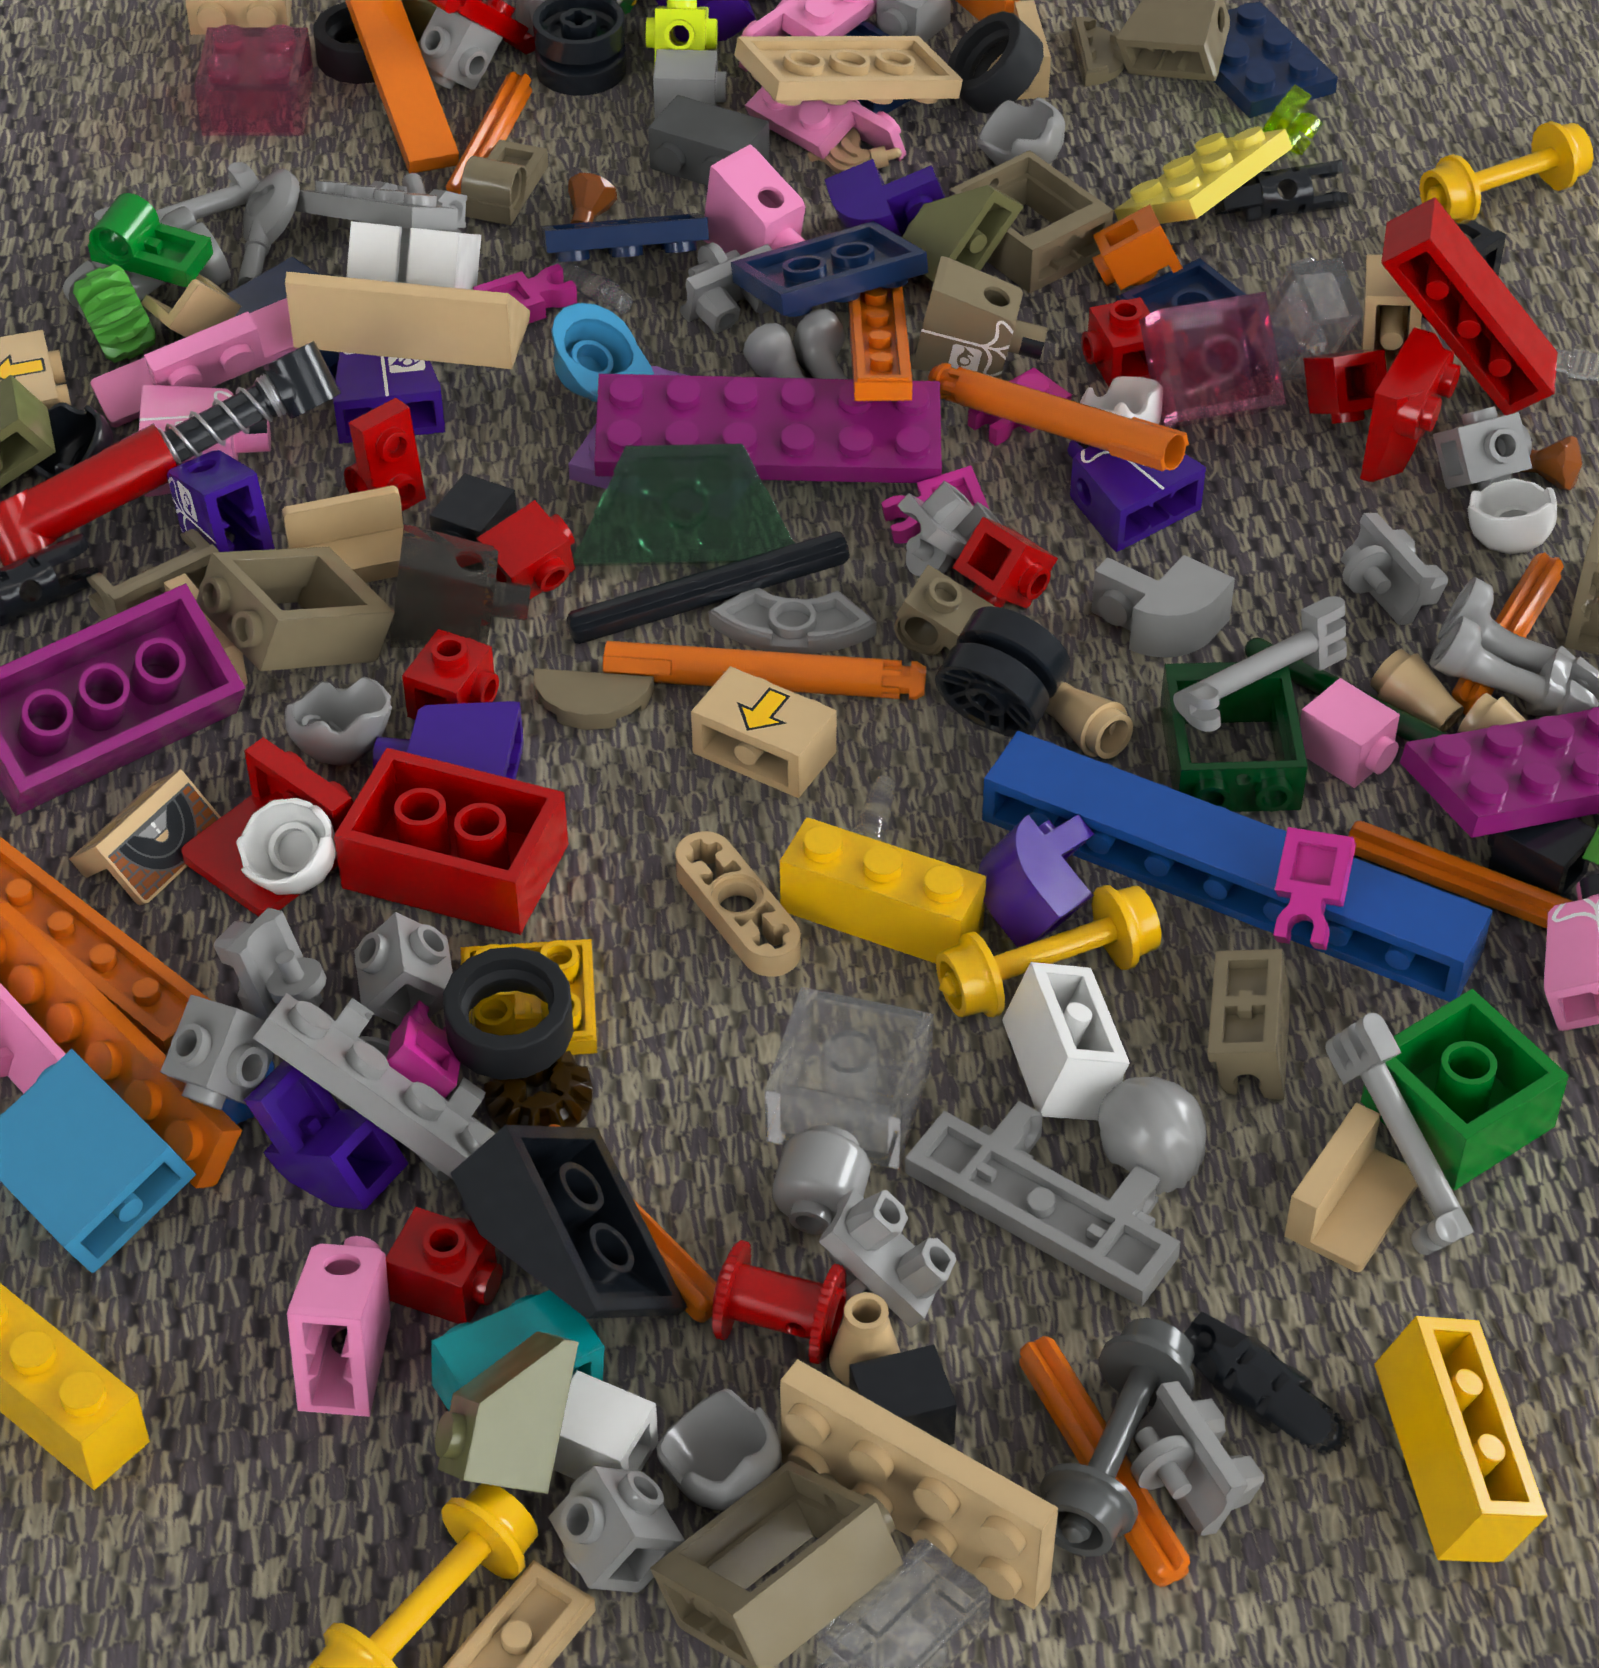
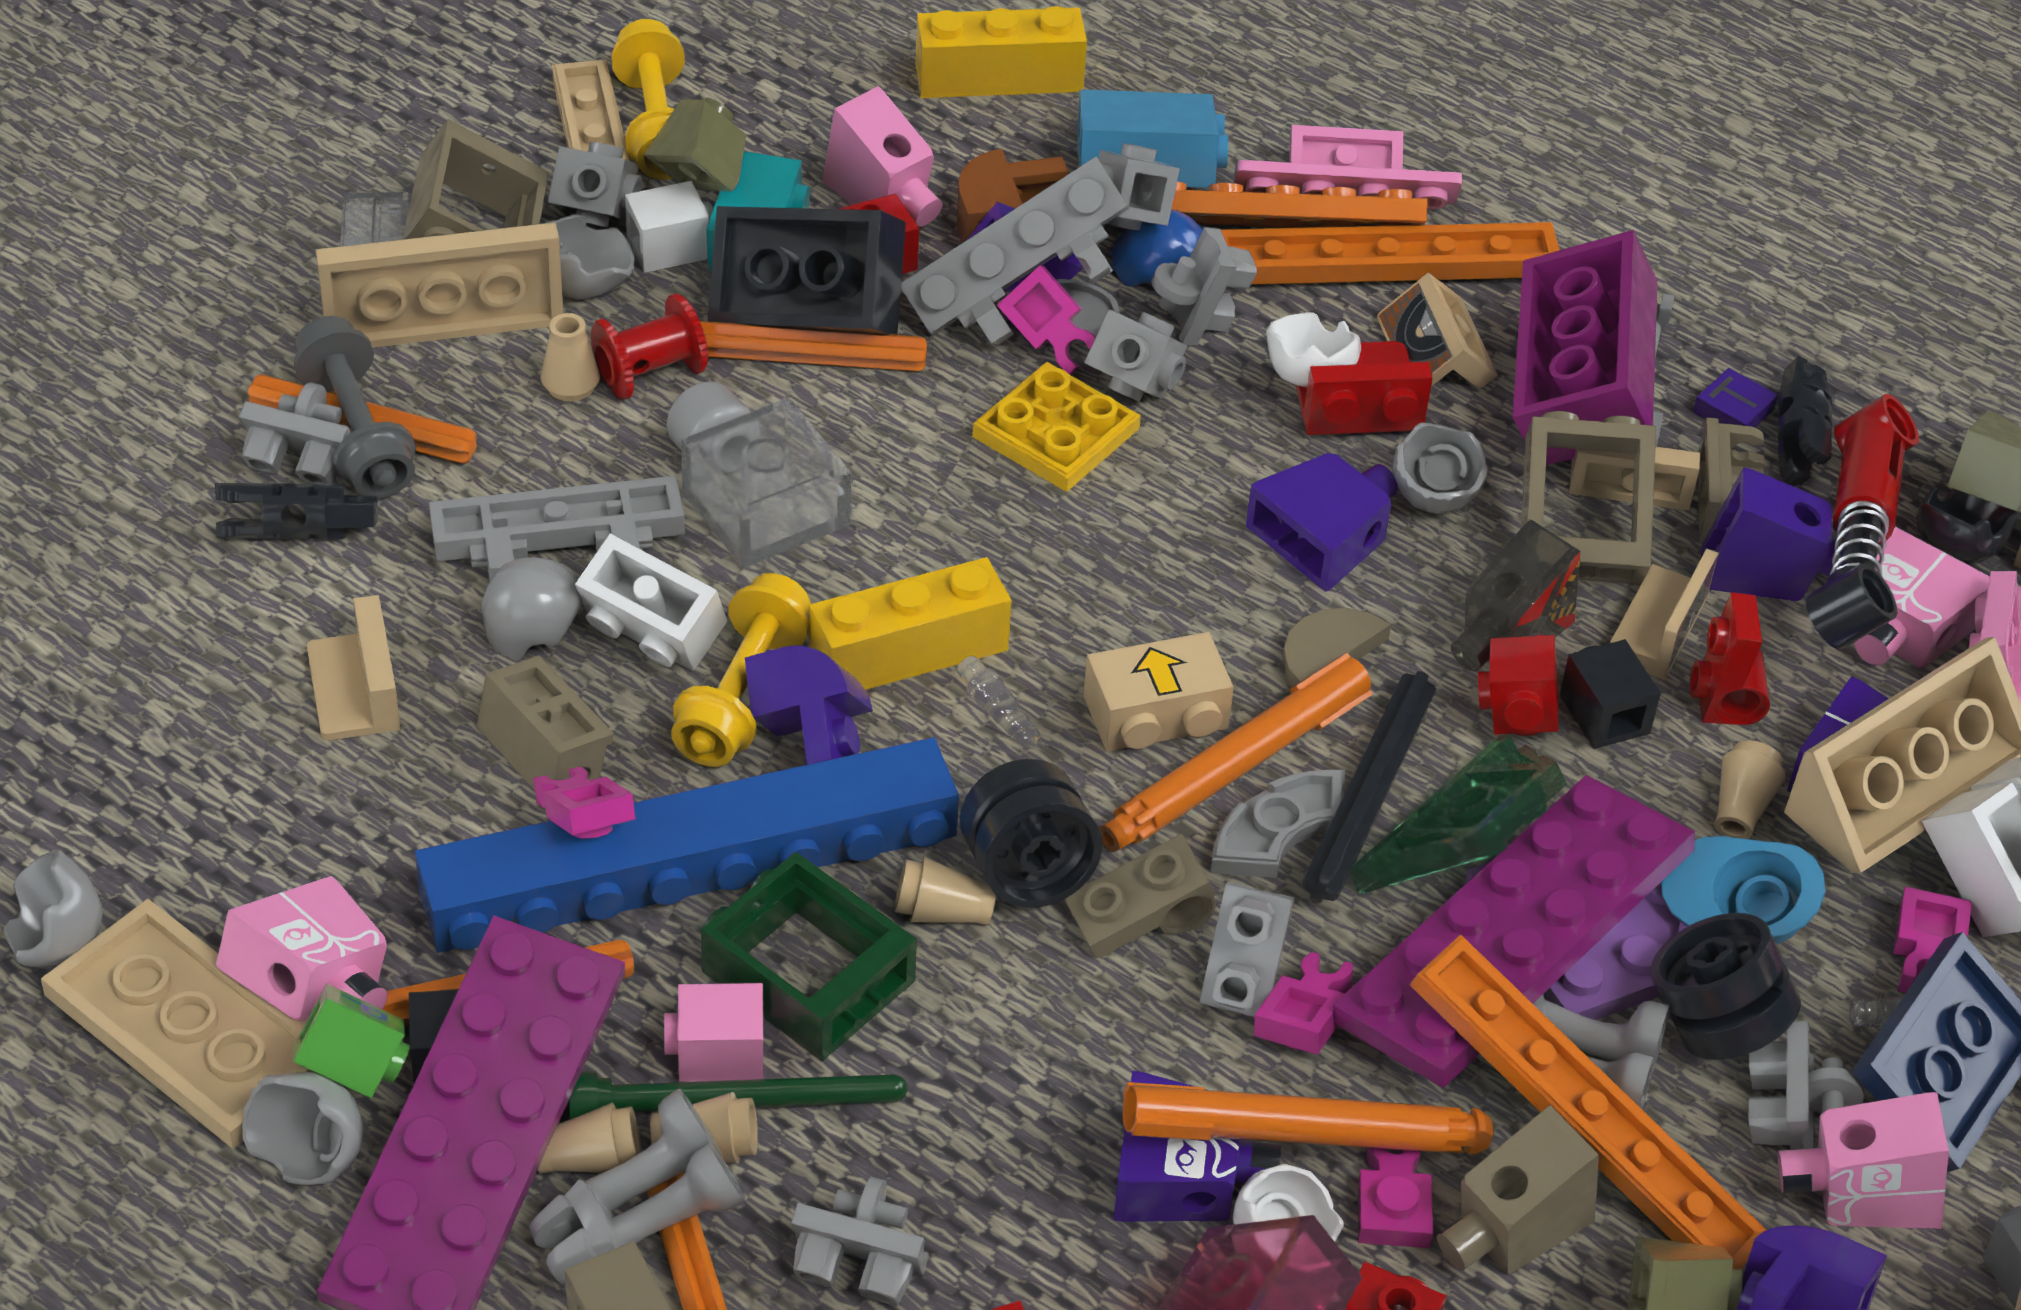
camera: 130 degrees right, 0 degrees up
(31, 633) = (1735, 400): none -> dark purple tile
(276, 1229) = (993, 180): none -> dark orange brick
(450, 672) = (1423, 563): red brick -> none
(452, 840) = (1220, 435): red brick -> none
(483, 427) = (1747, 785): none -> tan cone
(508, 971) = (1028, 384): black tyre -> none
(565, 1105) = (954, 392): dark brown gear -> none
(703, 293) = (1726, 986): none -> black wheel
(738, 879) = (1028, 594): tan beam -> none
(829, 268) = (1709, 1124): dark blue plate -> none
(881, 1259) = (611, 399): light grey hips -> none
(911, 1387) = (508, 350): black brick -> none
(1004, 565) = (1164, 963): red brick -> none
(1168, 614) = (997, 1034): light grey brick -> none
(1317, 643) = (840, 899): light grey hinge -> none
(1362, 1054) = (396, 680): light grey hinge -> none
(1459, 1440) = (129, 536): yellow brick -> none
(1474, 1086) = (330, 767): green brick -> none

